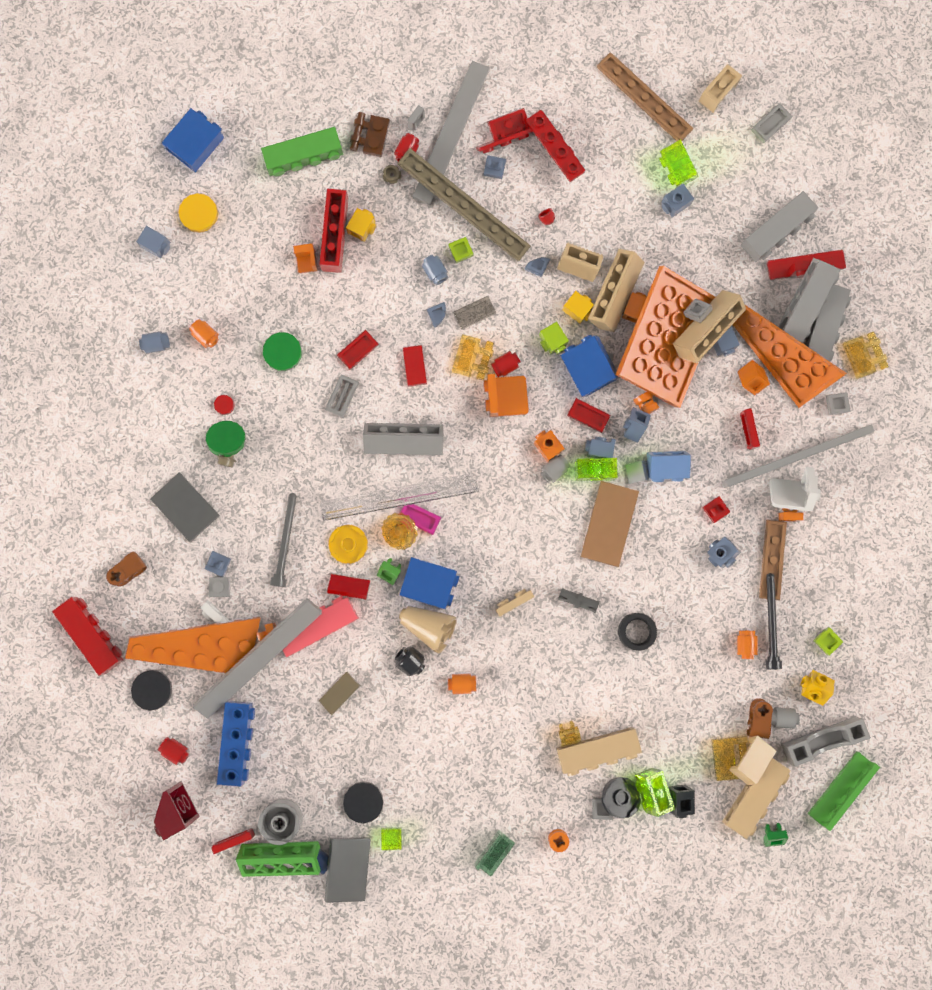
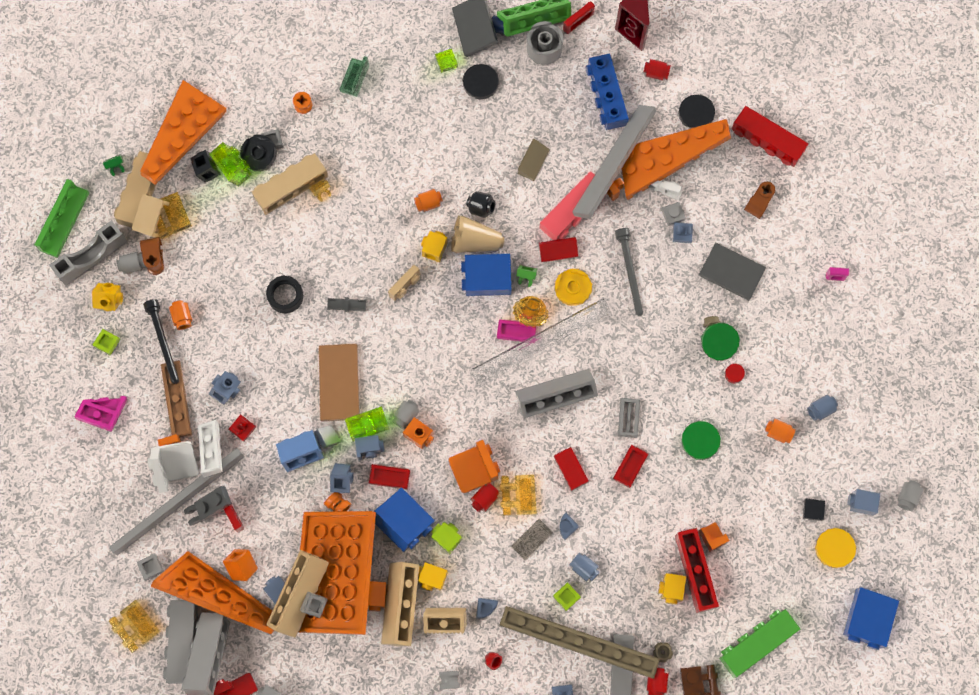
camera: 165 degrees right, 10 degrees down
(83, 467) = (837, 274): none -> dark pink tile
(109, 234) = (910, 495): none -> light grey brick
(203, 253) = (813, 509): none -> black tile
(472, 633) = (434, 245): none -> yellow brick
(592, 211) = (449, 680): none -> light grey wheel
(688, 856) = (185, 124): none -> orange wing
(754, 495) = (210, 448): none -> white tile
(769, 439) = (209, 505): none -> dark grey hinge
(849, 570) = (101, 412): none -> dark pink wing

